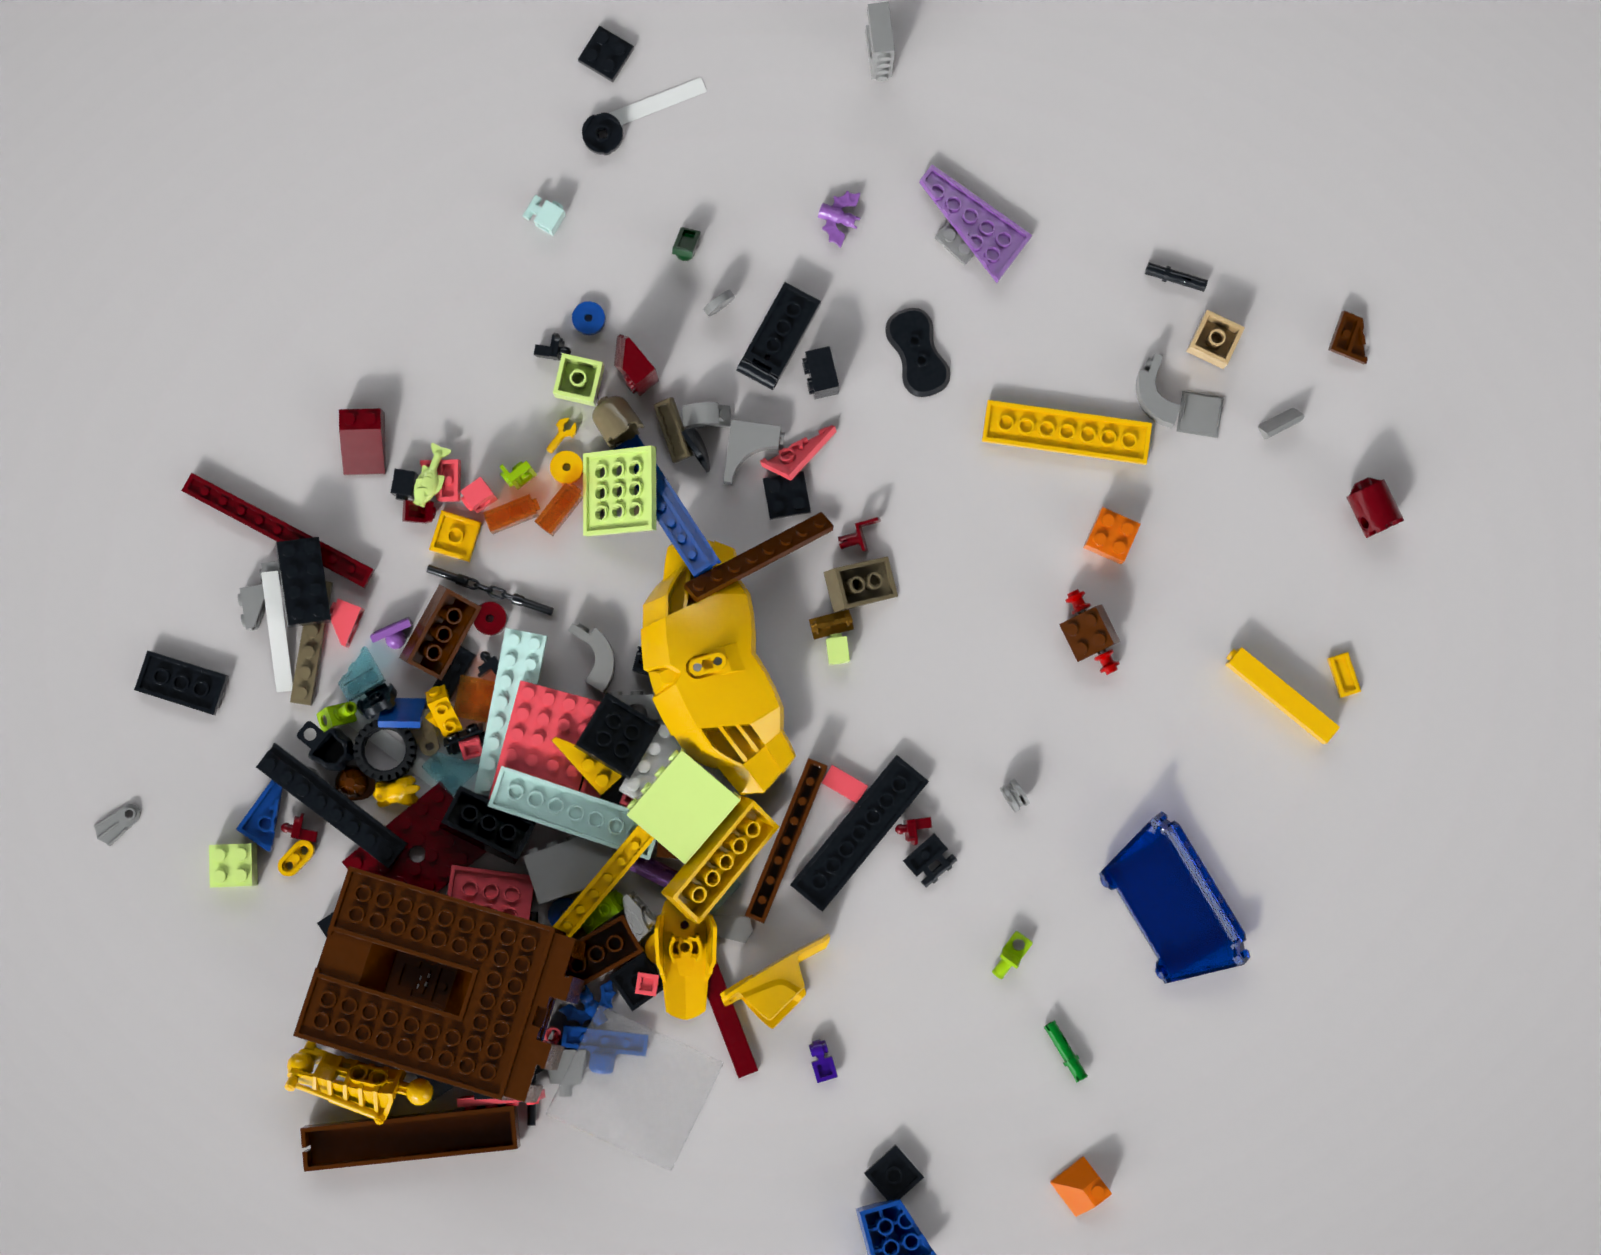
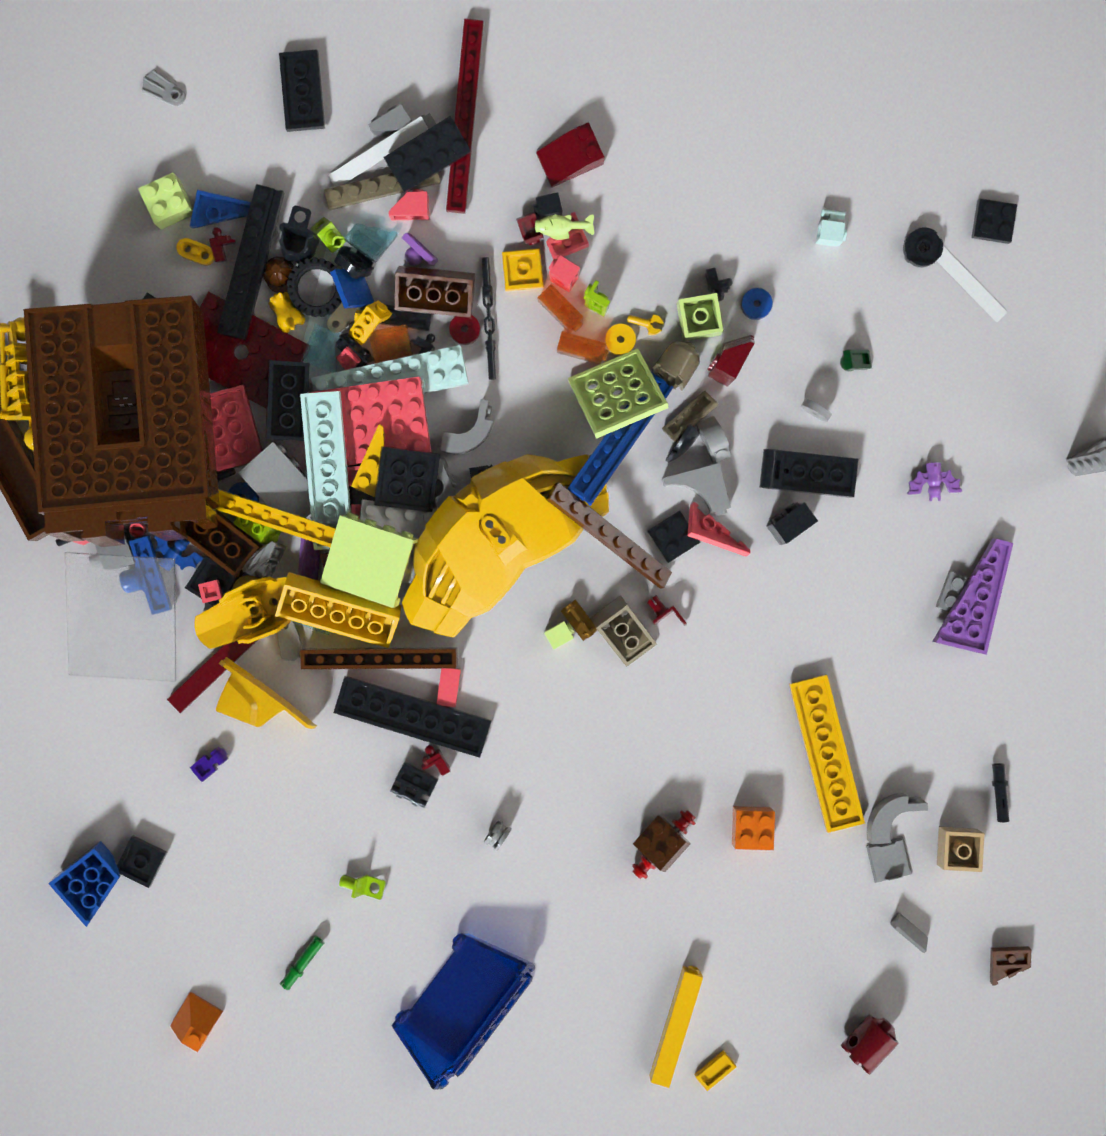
camera: 70 degrees right, 5 degrees up
(922, 366) = (853, 588): black plate -> none

